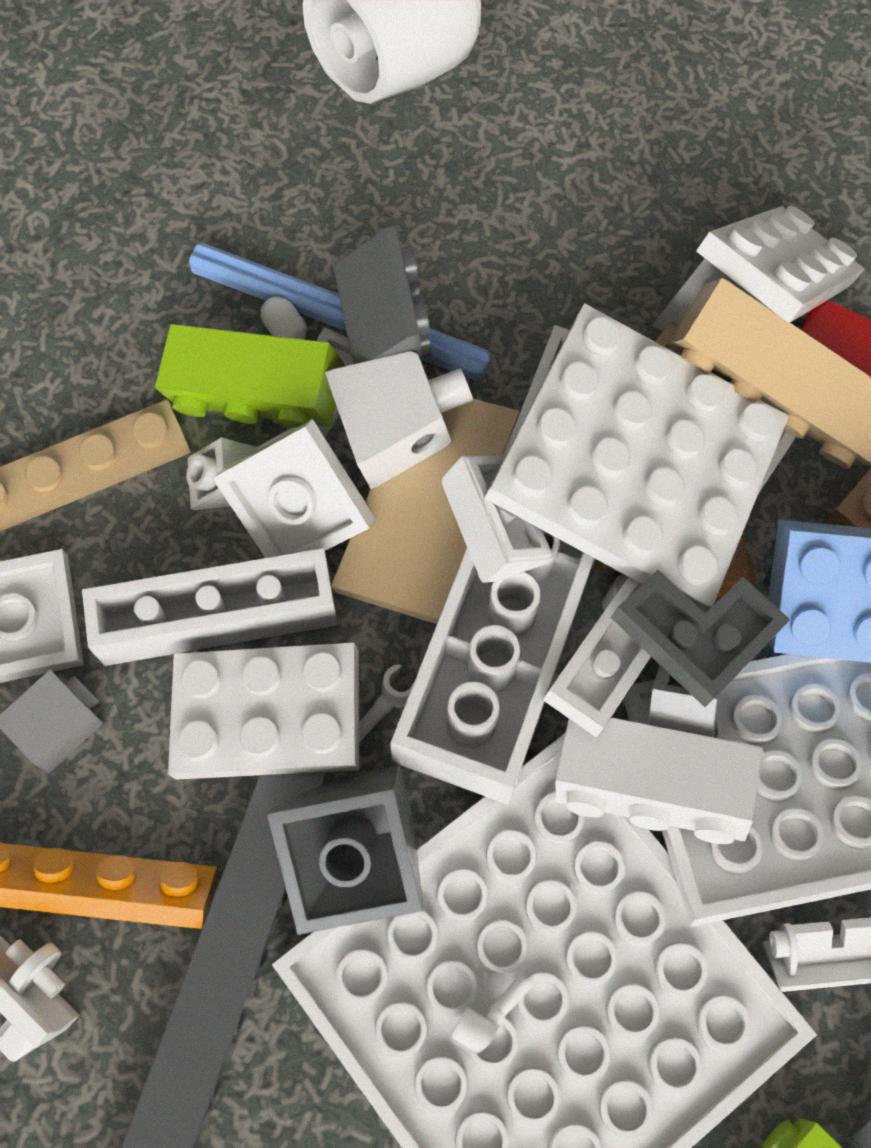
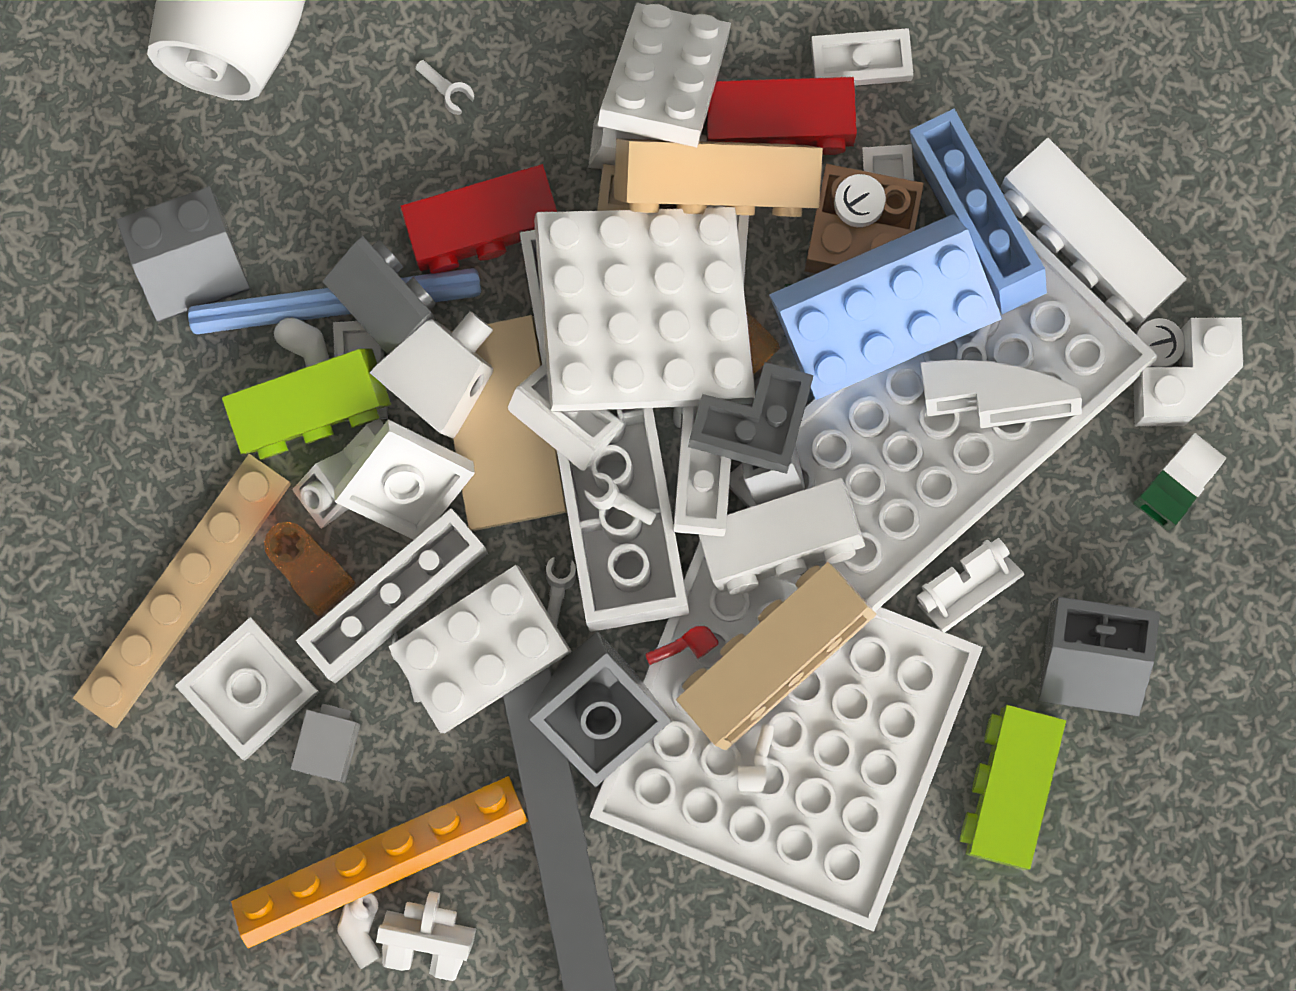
camera: 25 degrees left, 10 degrees up
(152, 538) = (311, 573): none -> clear orange piece
(225, 190) = (183, 253): none -> dark grey slope
(498, 627) = (618, 500): none -> white hand
(502, 836) = (698, 639): none -> red hand
(511, 302) = (476, 219): none -> red brick
(559, 187) = (445, 86): none -> white hand
(580, 904) = (775, 655): none -> tan brick

